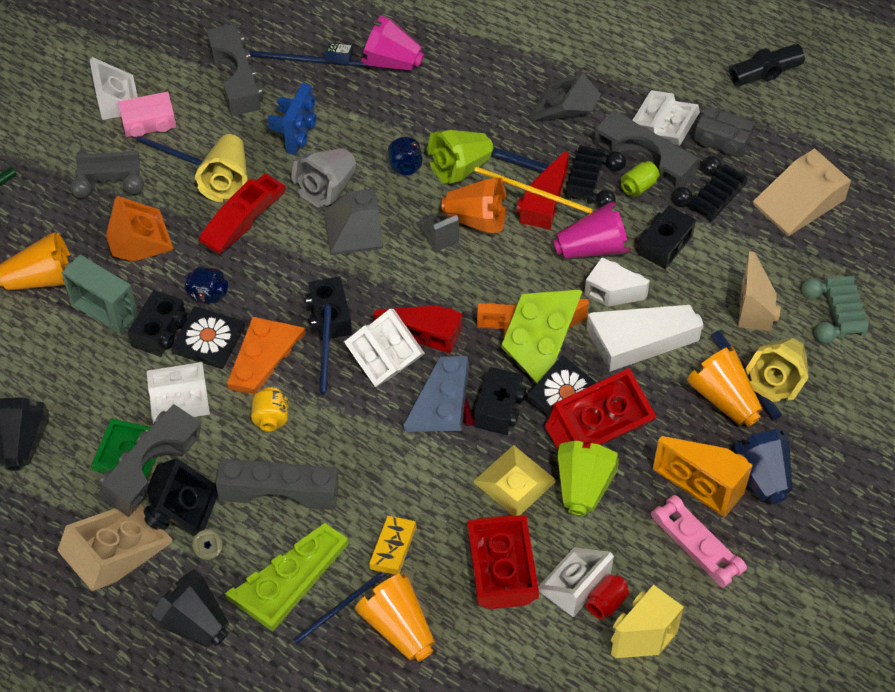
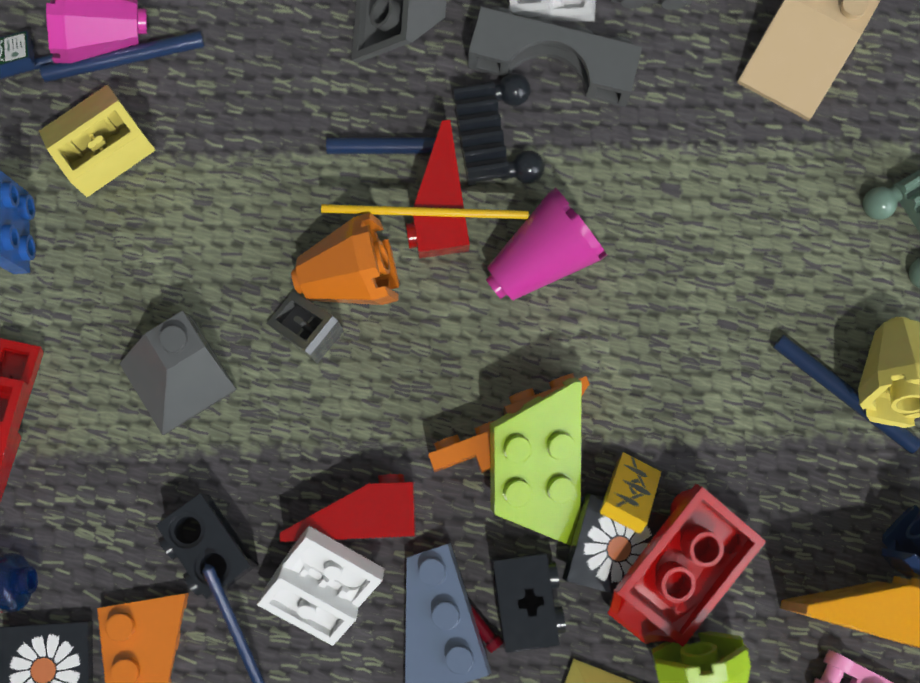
camera: 25 degrees left, 25 degrees up
(323, 175) = (92, 304): light grey cone -> none
(367, 105) = (95, 141): none -> light yellow slope
(399, 74) = (124, 56): none -> dark blue bar
(405, 155) = (199, 215): clear blue head -> none
(457, 153) = (280, 180): lime cone -> none
(587, 365) = (631, 493): none -> yellow tile
(615, 285) = (604, 321): white slope -> none
(639, 178) = (565, 112): lime brick -> none
(642, 333) = (674, 398): white slope -> none
(666, 236) = (659, 182): black brick -> none
(715, 194) = (684, 85): black gear -> none
(727, 387) = (838, 439): light orange cone -> none
(758, 298) = (818, 262): tan slope -> none

